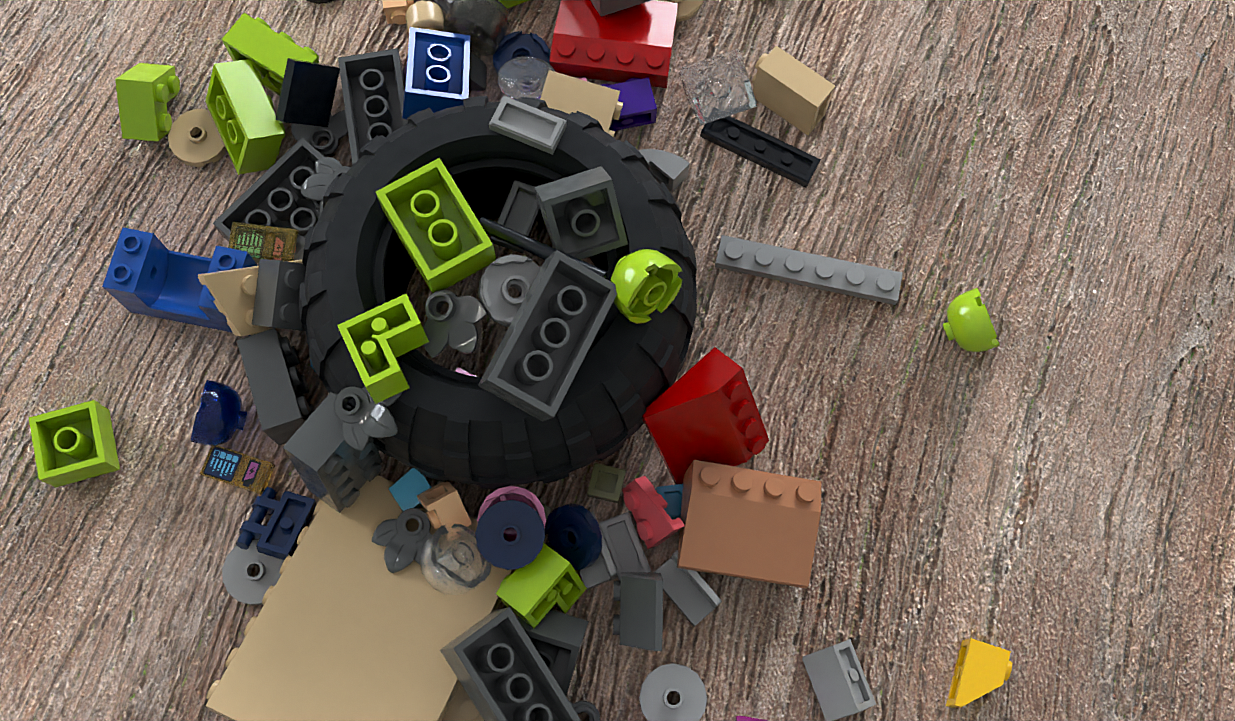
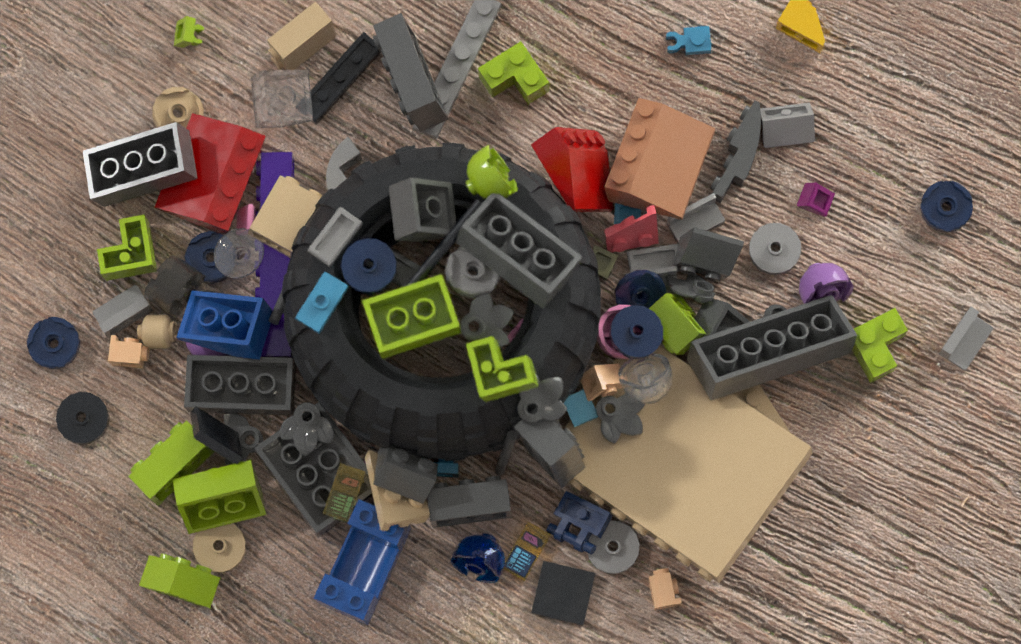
camera: 70 degrees left, 5 degrees up
(192, 524) = (563, 593): none -> black tile
(206, 645) = (663, 589): none -> light nougat brick
(441, 126) = (321, 302): none -> dark azure plate
(501, 185) = (369, 280): none -> dark blue plate
(593, 600) = (692, 287): none -> dark grey plate
(780, 209) = (409, 73): none -> dark grey brick
(799, 629) = (744, 146): none -> dark grey slope
(820, 330) = (514, 68): none -> lime brick
(915, 540) = (695, 40): none -> dark azure plate

